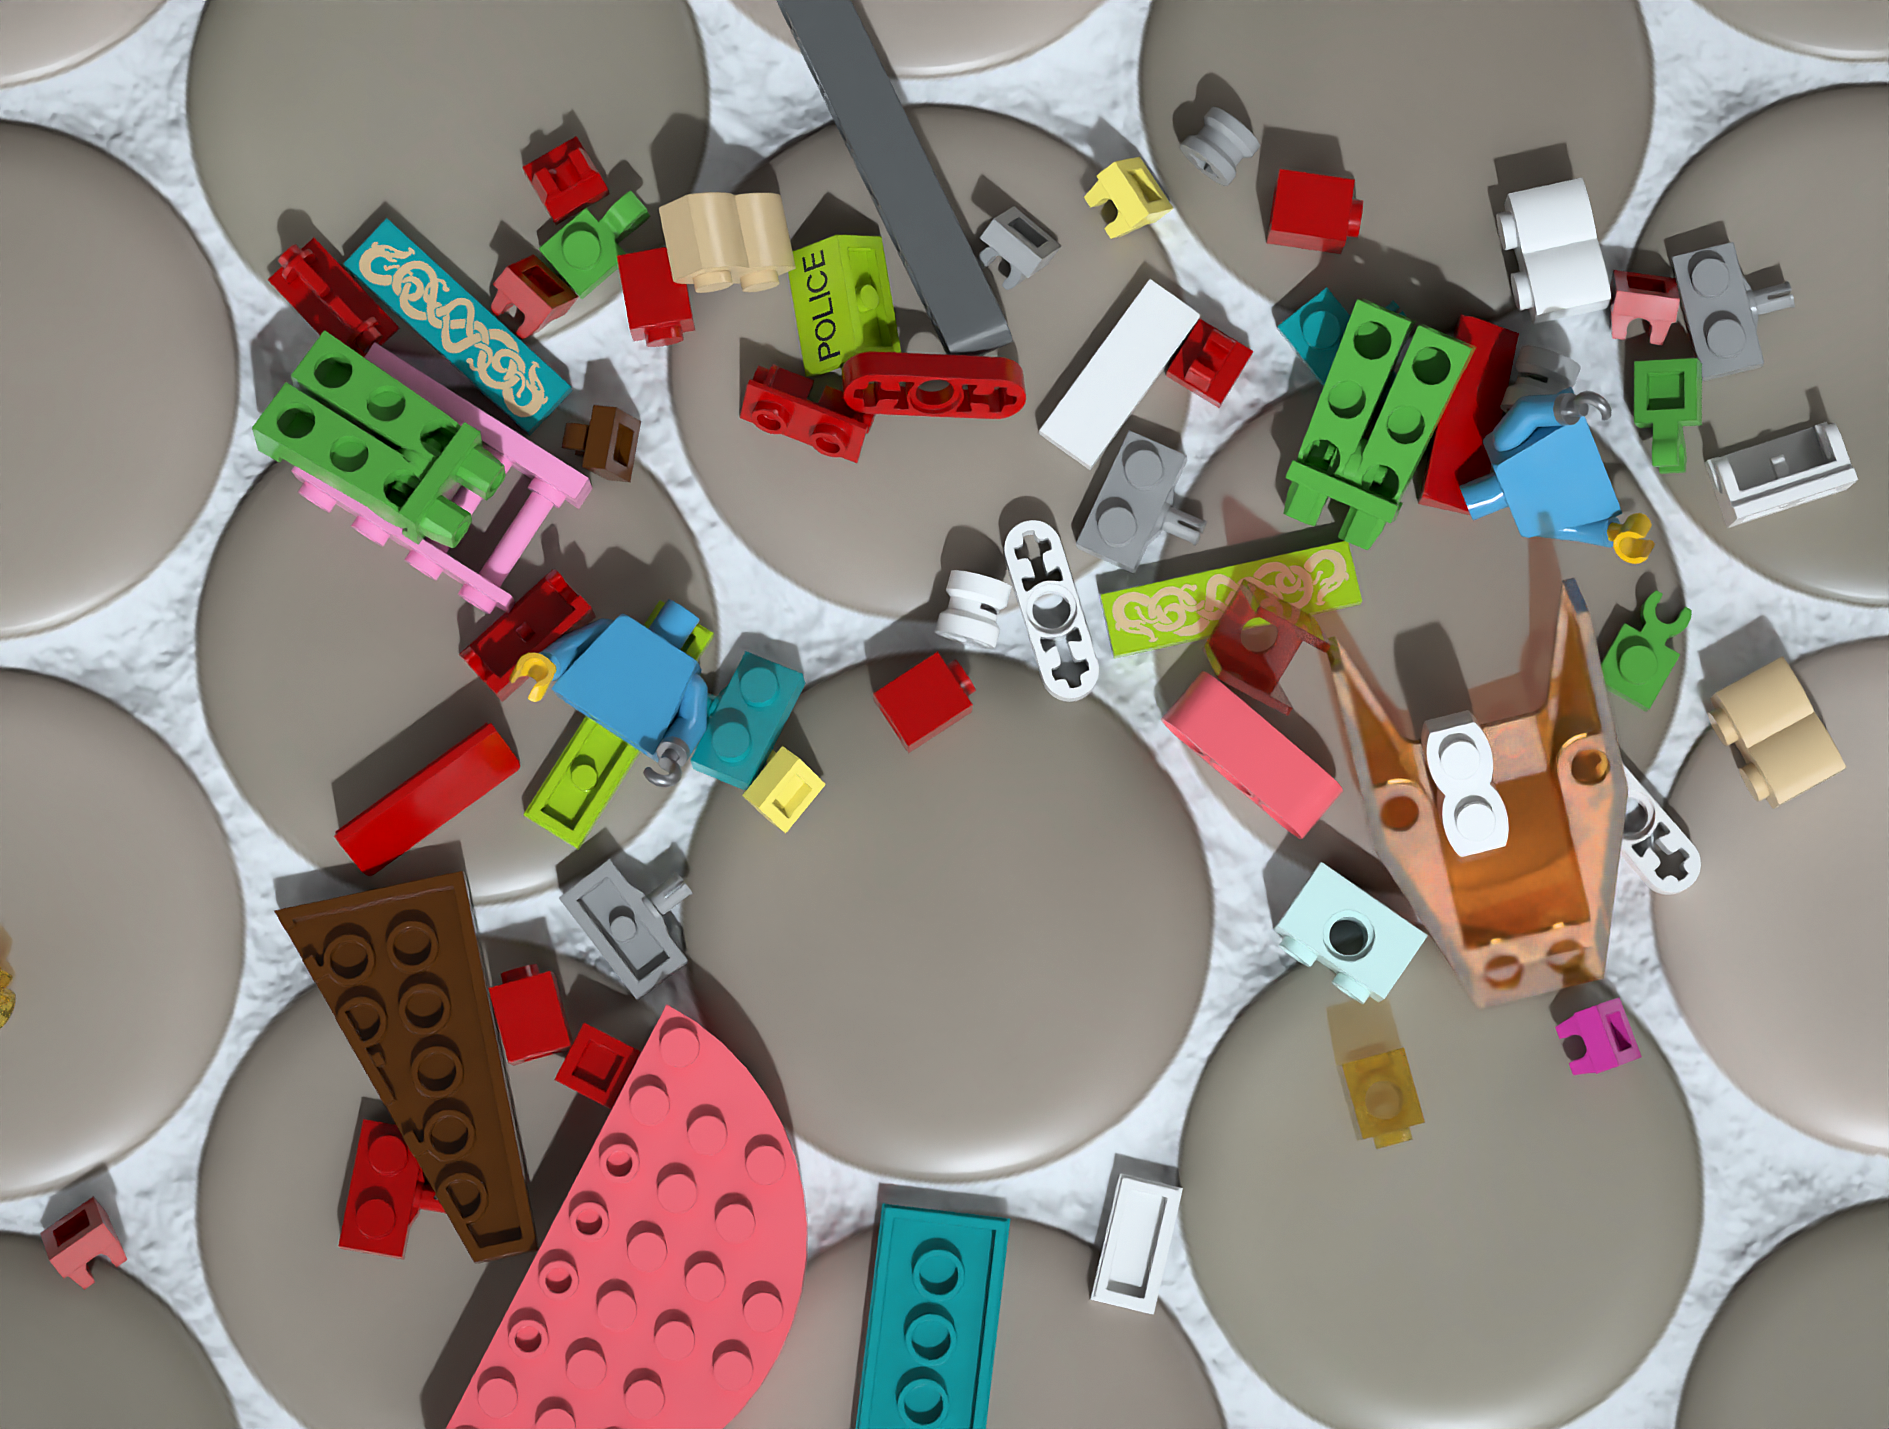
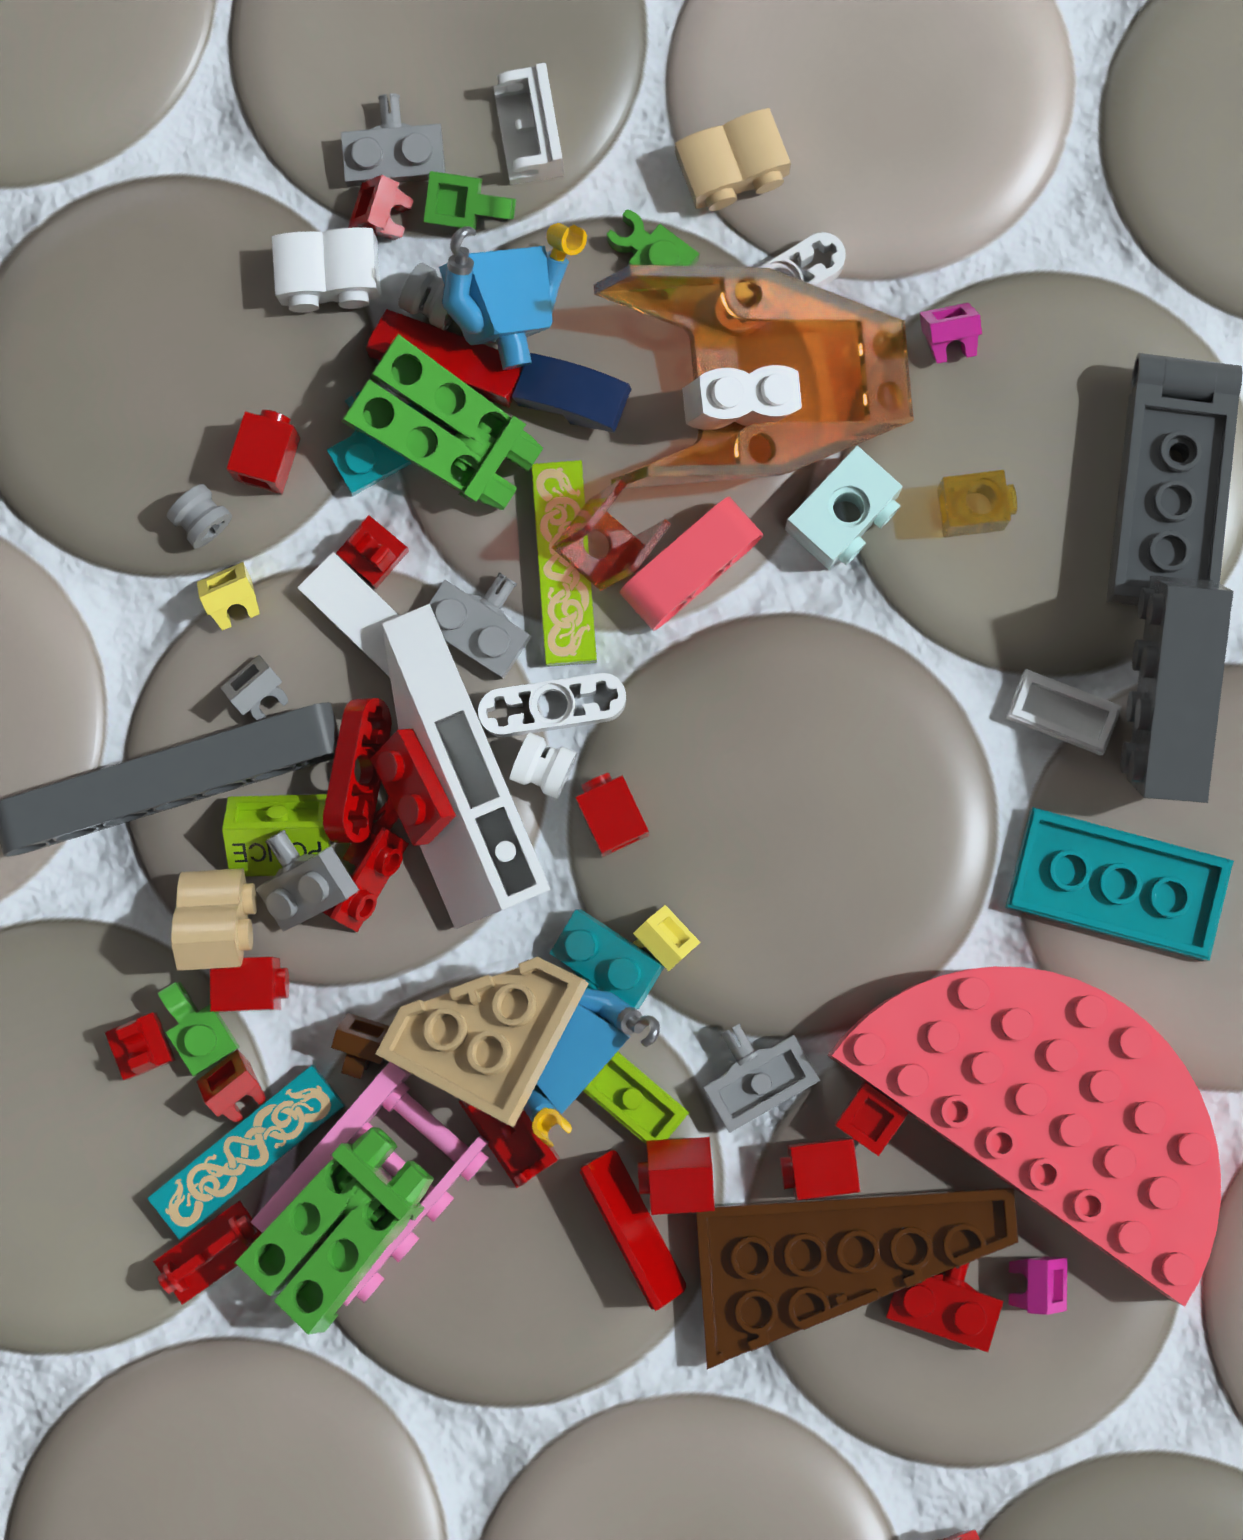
camera: 75 degrees left, 0 degrees up
(429, 1305) = (1045, 1285): none -> dark pink tile
(498, 843) = (678, 1176): none -> red brick
(631, 585) = (487, 1035): none -> tan plate
(785, 342) = (304, 883): none -> light grey plate
(917, 453) = (411, 788): none -> red plate
(938, 504) = (484, 852): none -> white wedge
(1172, 1369) = (1177, 688): none -> dark grey brick
(1411, 1347) = (1166, 510): none -> dark grey hinge
(1445, 576) = (573, 390): none -> dark blue slope

